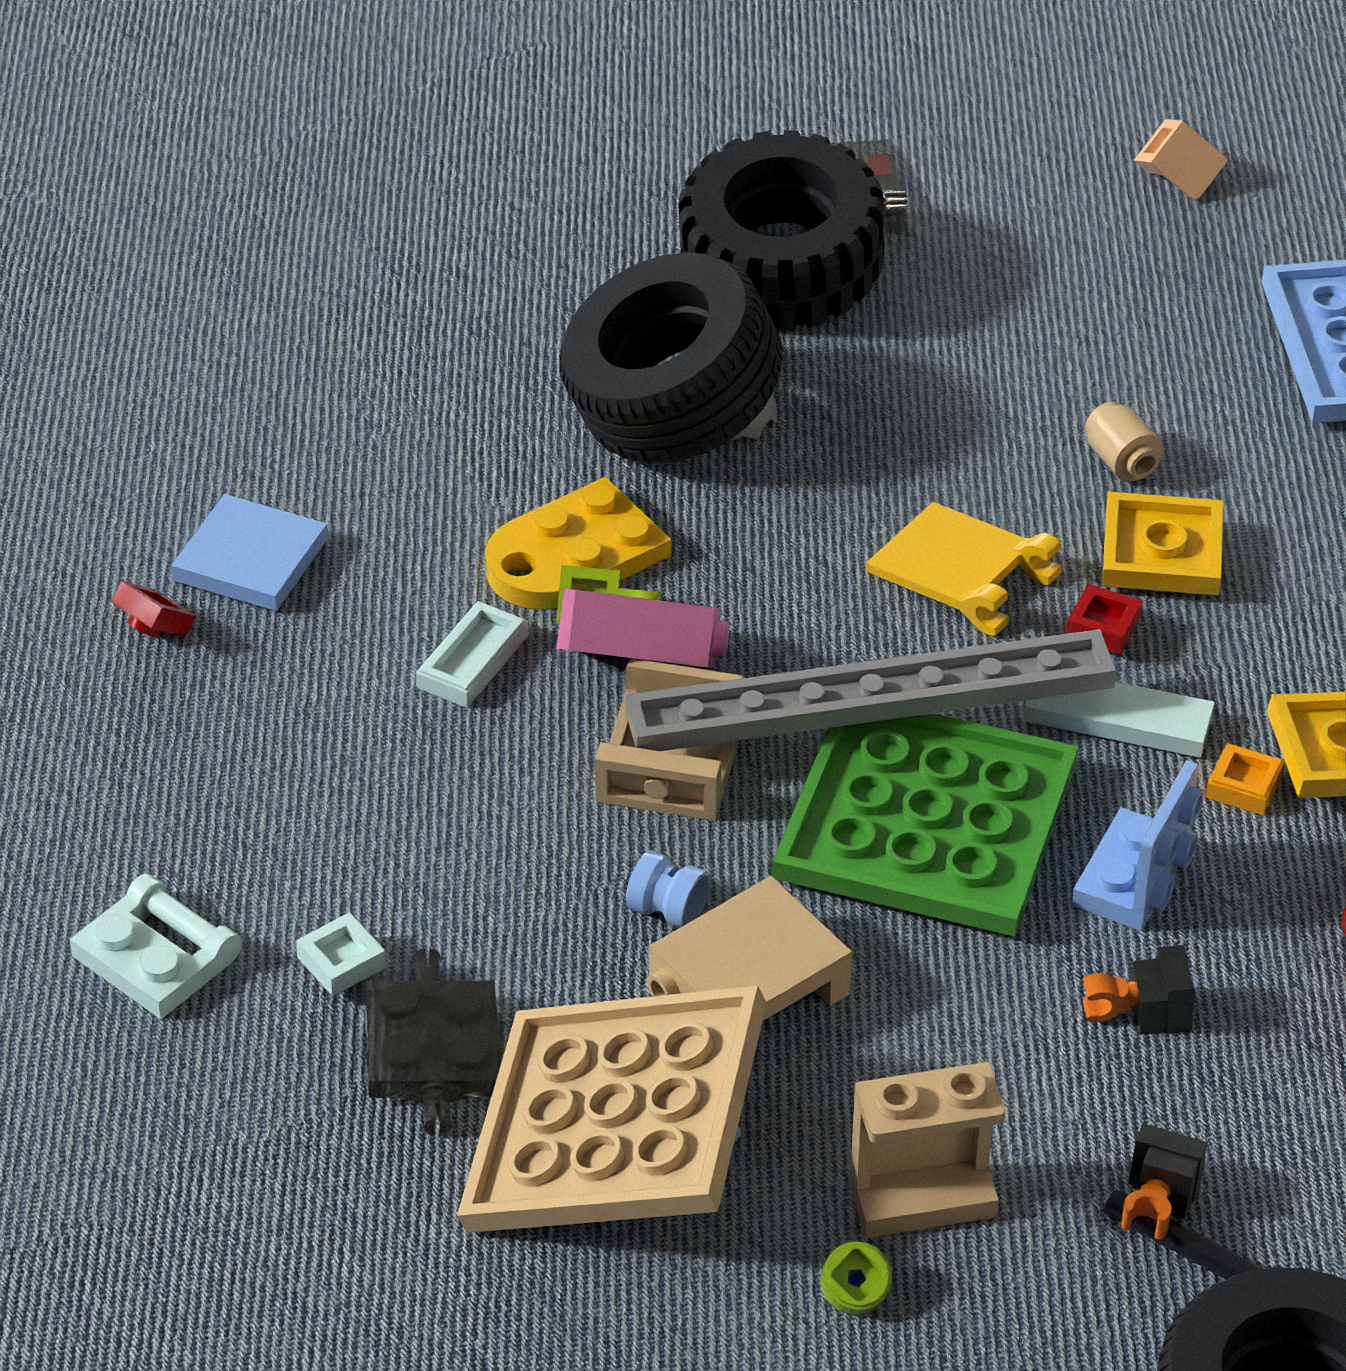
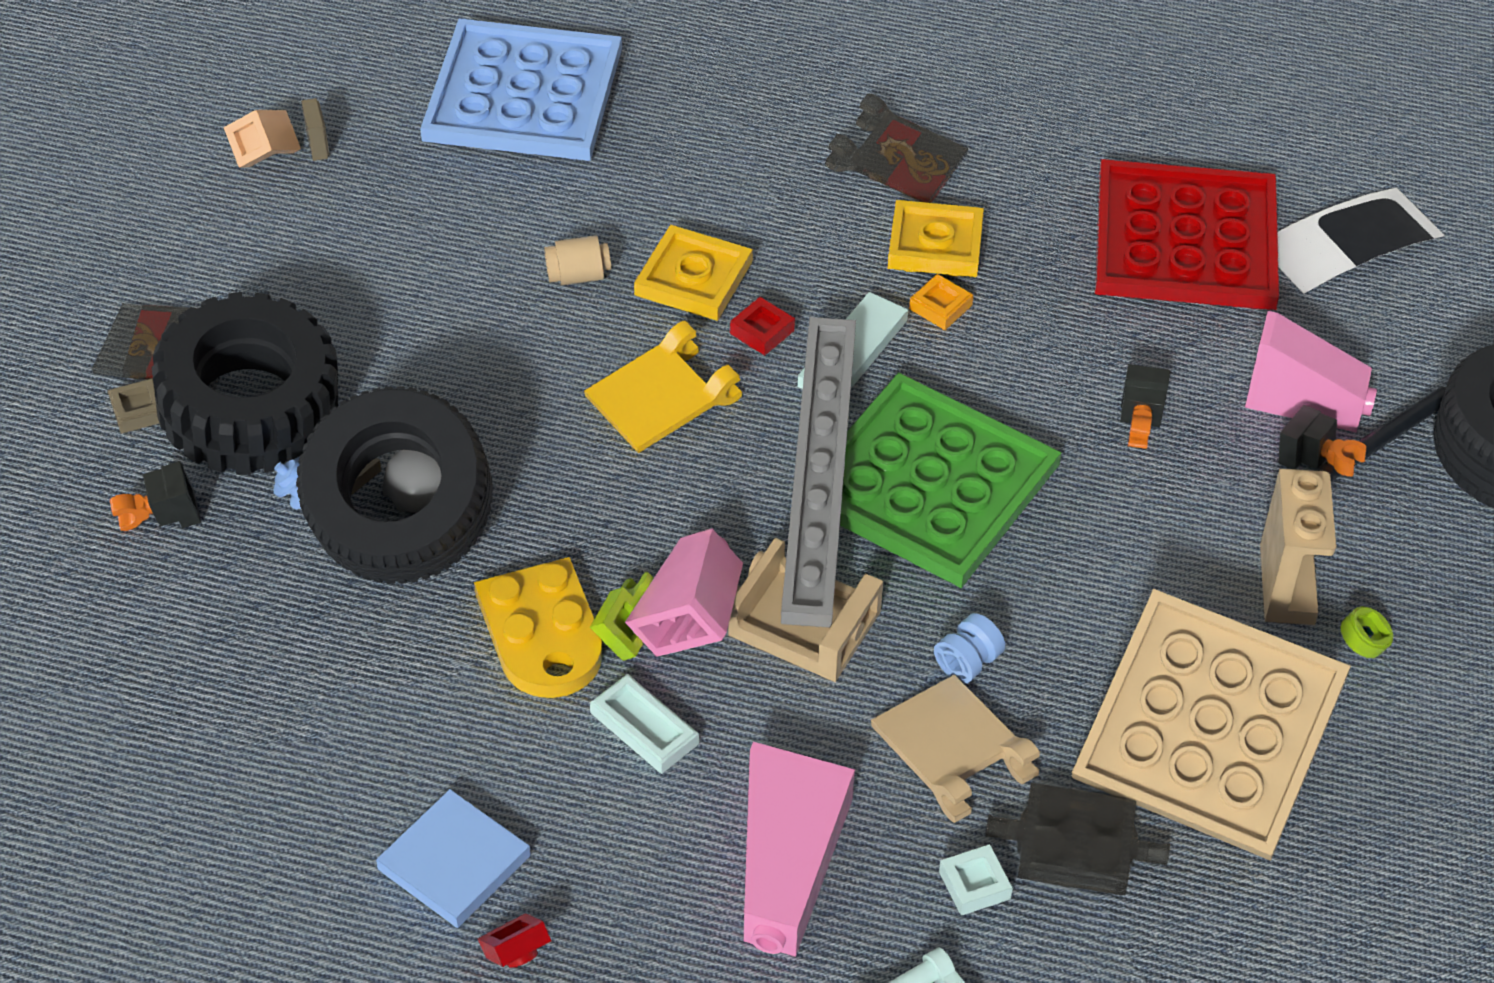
camera: 75 degrees left, 5 degrees up
(332, 787) = (791, 837): none -> bright pink slope
(539, 903) = (951, 736): none -> tan flag
(620, 232) = (167, 497): none -> pearl dark grey piece
(752, 941) = (1067, 616): tan panel -> none
(1140, 854) = (1023, 362): light blue bracket -> none
(1216, 191) = (315, 129): none -> dark tan tile
(1267, 1140) = (1302, 370): none -> bright pink slope

